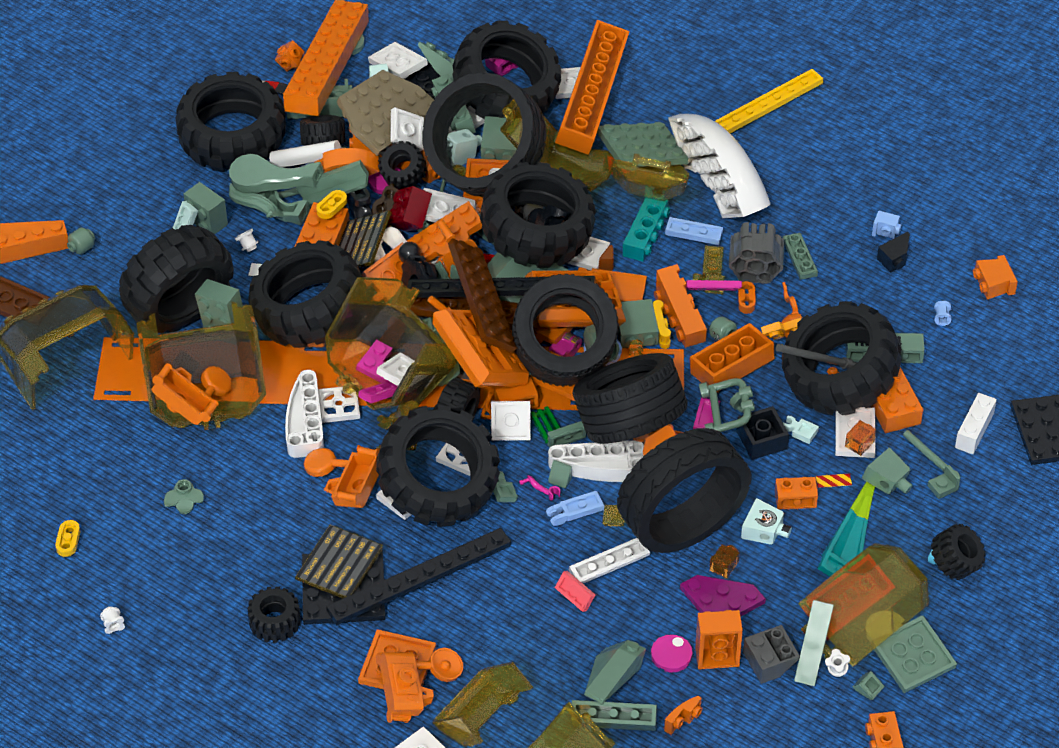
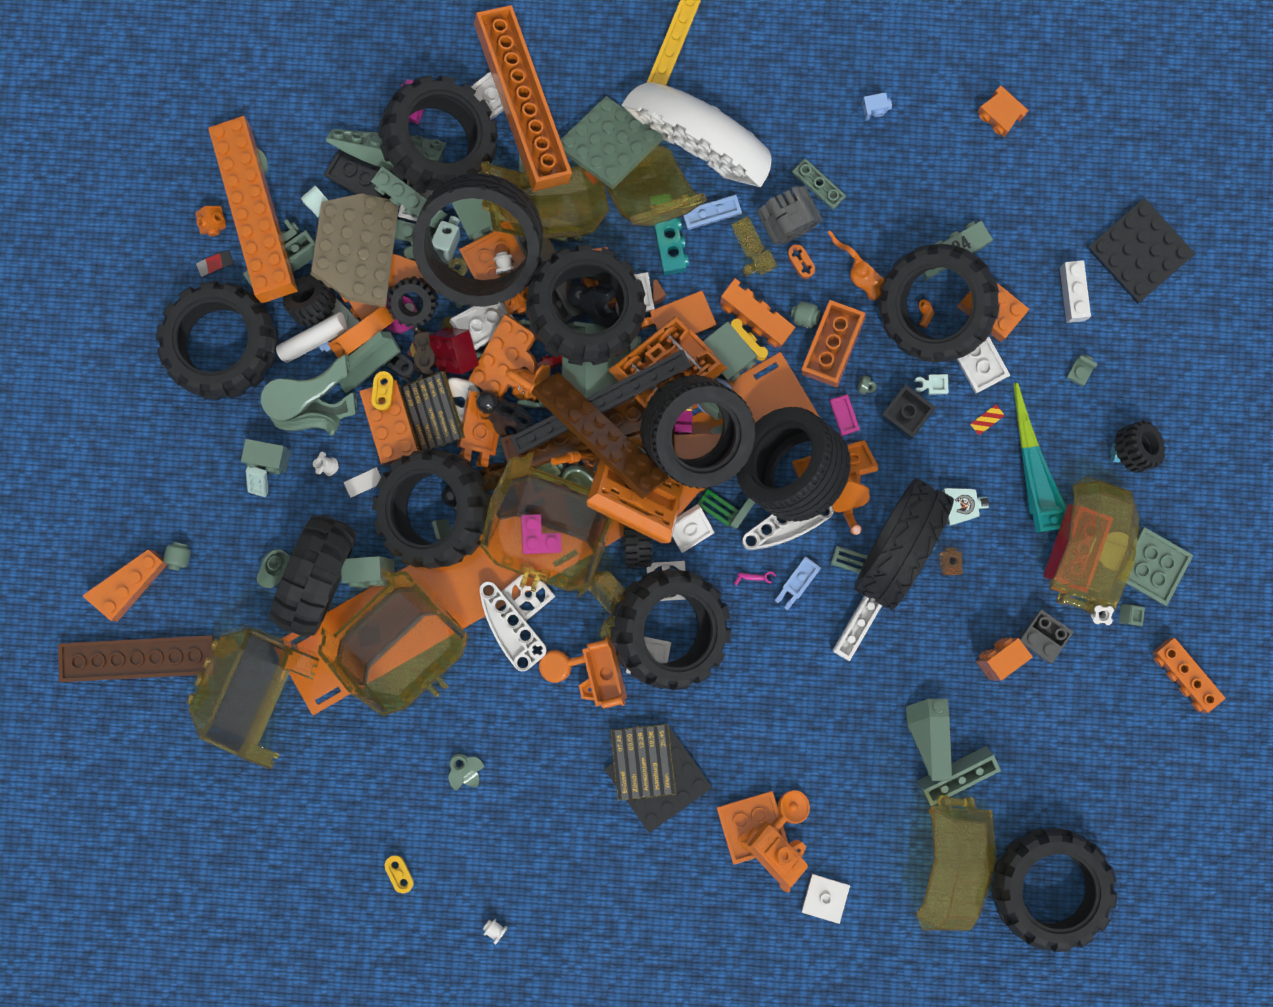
camera: 30 degrees left, 35 degrees up
(187, 399) = (406, 687): orange piece -> none
(274, 627) = (619, 863): black tyre -> none
(378, 392) = (567, 564): dark pink tile -> none
(395, 368) = (571, 540): white plate -> none
(399, 60) = (316, 166): white plate -> none
(406, 127) = (393, 262): white plate -> none
(418, 576) = (716, 734): black plate -> none
(479, 701) = (838, 832): clear yellow windscreen -> none
(504, 490) = (732, 601): sand green plate -> none
(560, 474) = (763, 556): sand green slope -> none
(575, 591) = (850, 669): coral plate -> none
(612, 516) = (836, 571): clear yellow plate -> none
(636, 348) = (744, 381): clear yellow piece -> none
(671, 653) = (962, 680): dark pink tile -> none
(684, 712) = (1011, 730): orange slope -> none
(713, 285) = (771, 273): dark pink tile -> none
(721, 595) = (969, 601): magenta plate -> none
(746, 404) = (885, 399): sand green bar -> none
(778, 329) = (859, 295): light orange plate -> none
(796, 493) = (968, 457): orange brick -> none
(814, 643) = (1079, 613): tile -> none
(844, 363) = (932, 293): dark grey bar -> none
(860, 437) = (994, 371): clear orange brick -> none
(888, 473) = (1033, 391): sand green torso -> none
(894, 252) = (903, 134): black slope -> none
(925, 450) = (1045, 342): sand green bar -> none
(942, 313) = (979, 180): light blue bush -> none

